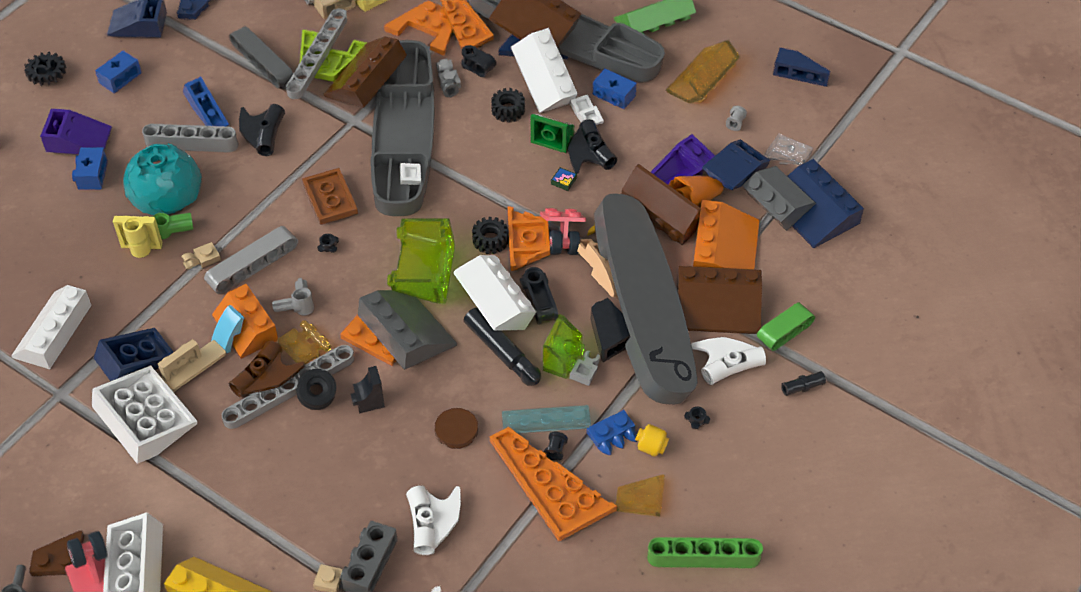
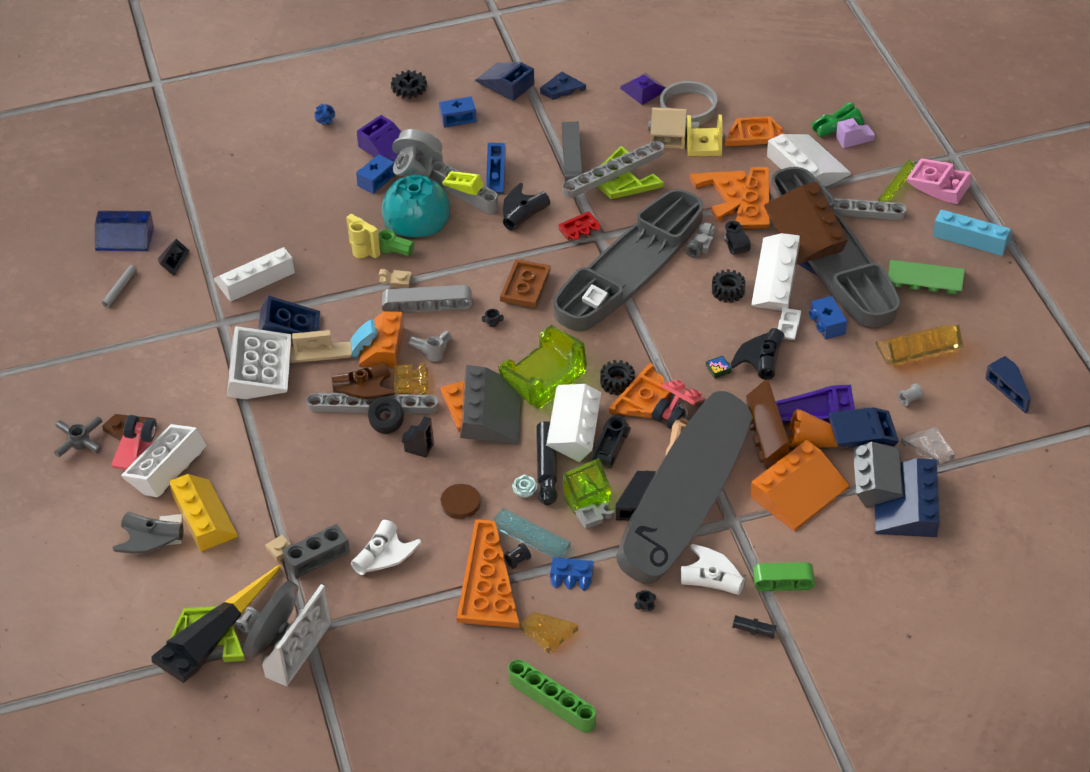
camera: 40 degrees right, 5 degrees down
(122, 128) = (416, 152): none -> light grey piece
(202, 129) = (464, 182): none -> neon yellow slope
(330, 119) = (579, 225): none -> red plate
(367, 72) = (635, 203): reddish brown slope -> none
(502, 374) = (524, 486): none -> light aqua plate
(551, 132) = (739, 322): green slope -> none
(652, 440) = (591, 594): yellow head -> none
(721, 299) = (749, 525): reddish brown slope -> none

